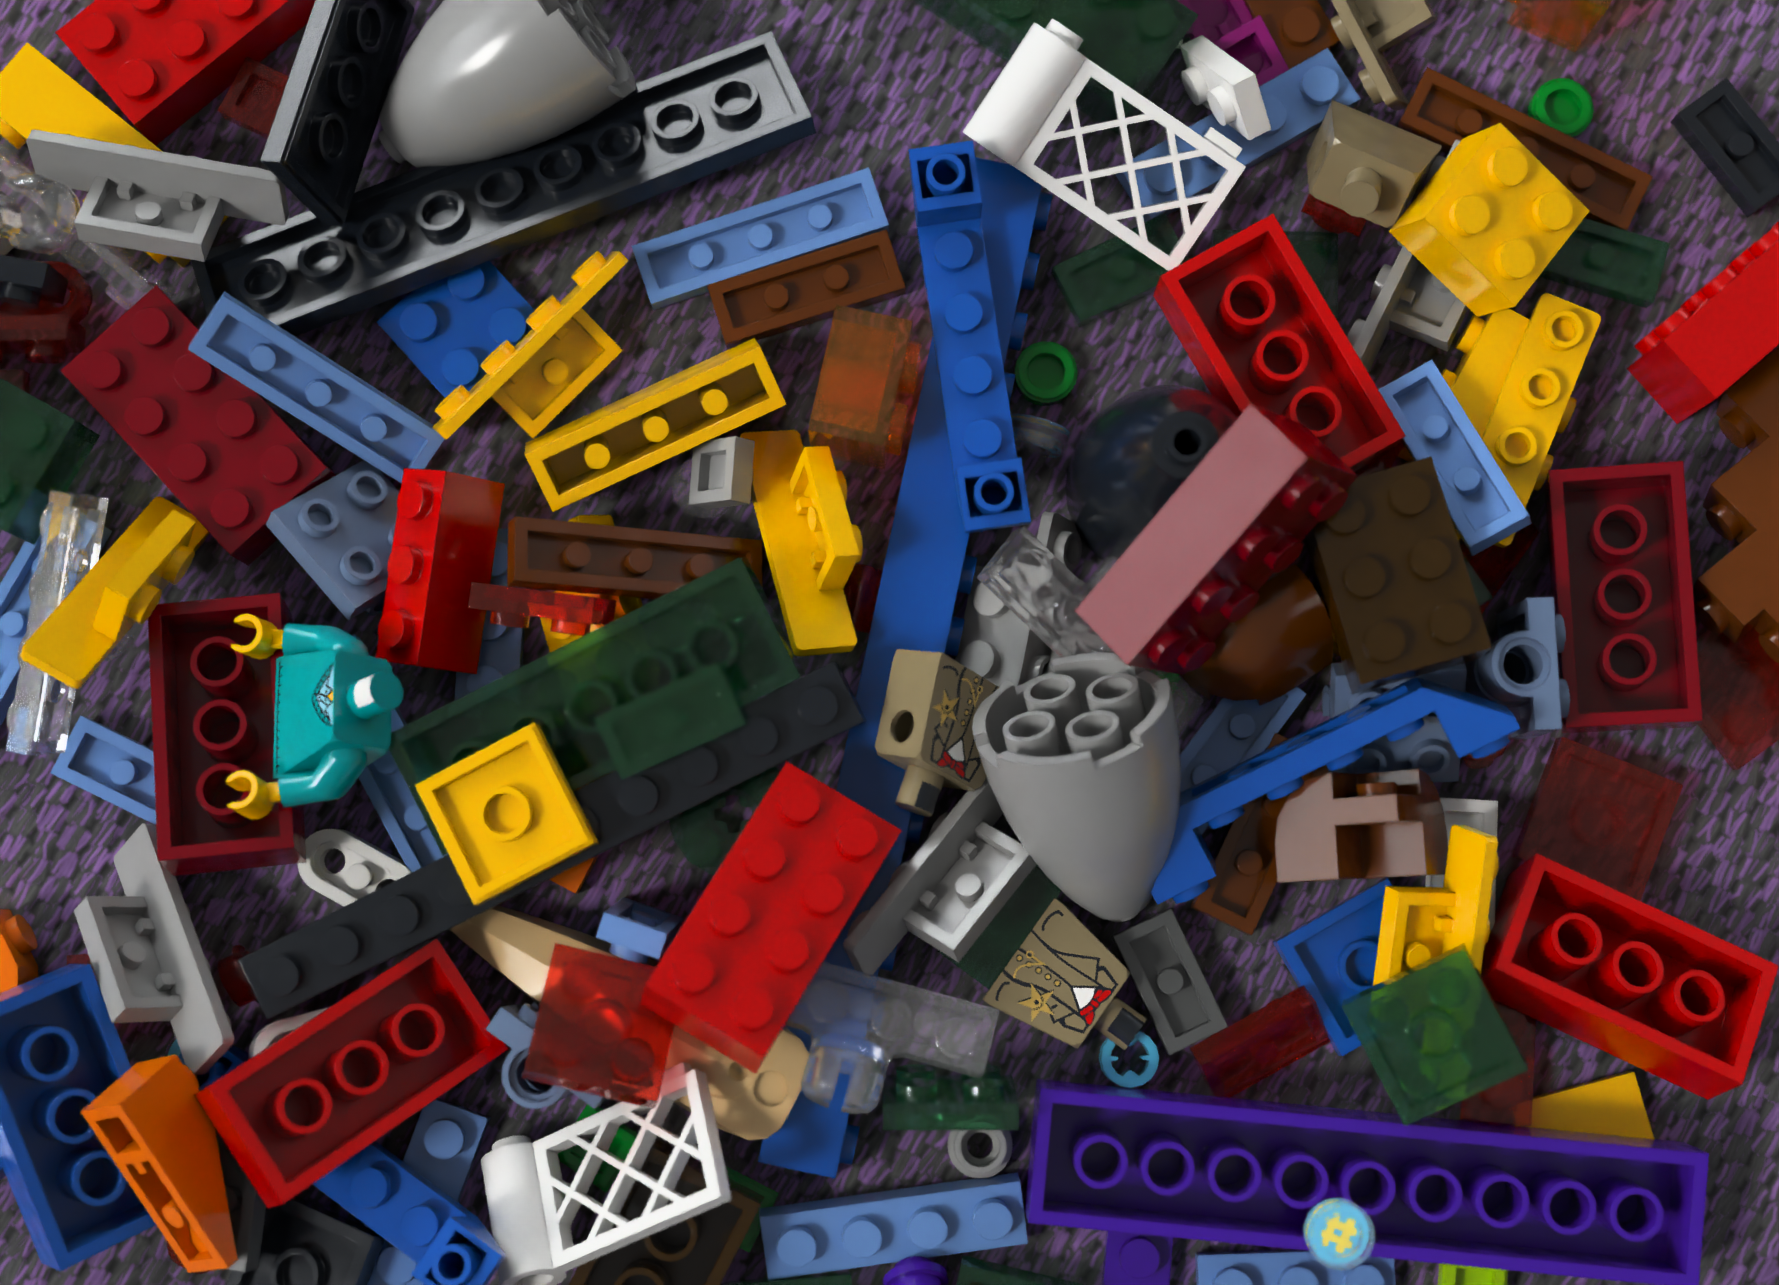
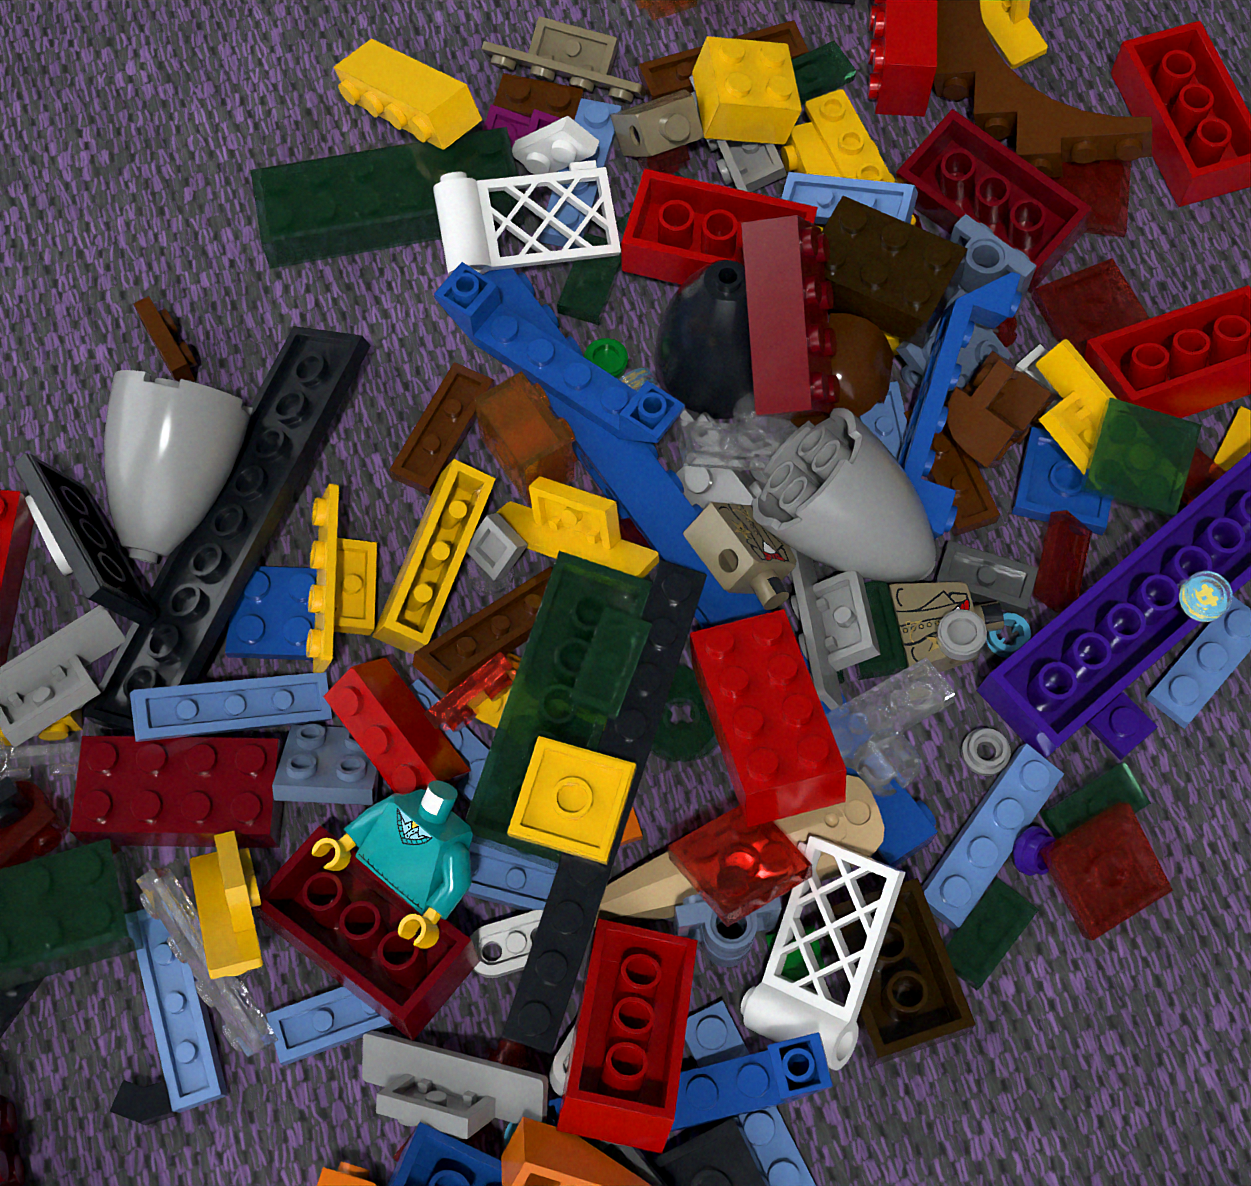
camera: 45 degrees left, 15 degrees down
(254, 97) = (44, 601): clear red plate -> none
(638, 930) = (700, 808): medium blue plate -> none
(759, 236) = (367, 465): medium blue plate -> none
(929, 1101) = (956, 724): clear green plate -> none
(1062, 1020) = (961, 635): none -> light grey tile
(1562, 106) = (718, 26): green tile -> none

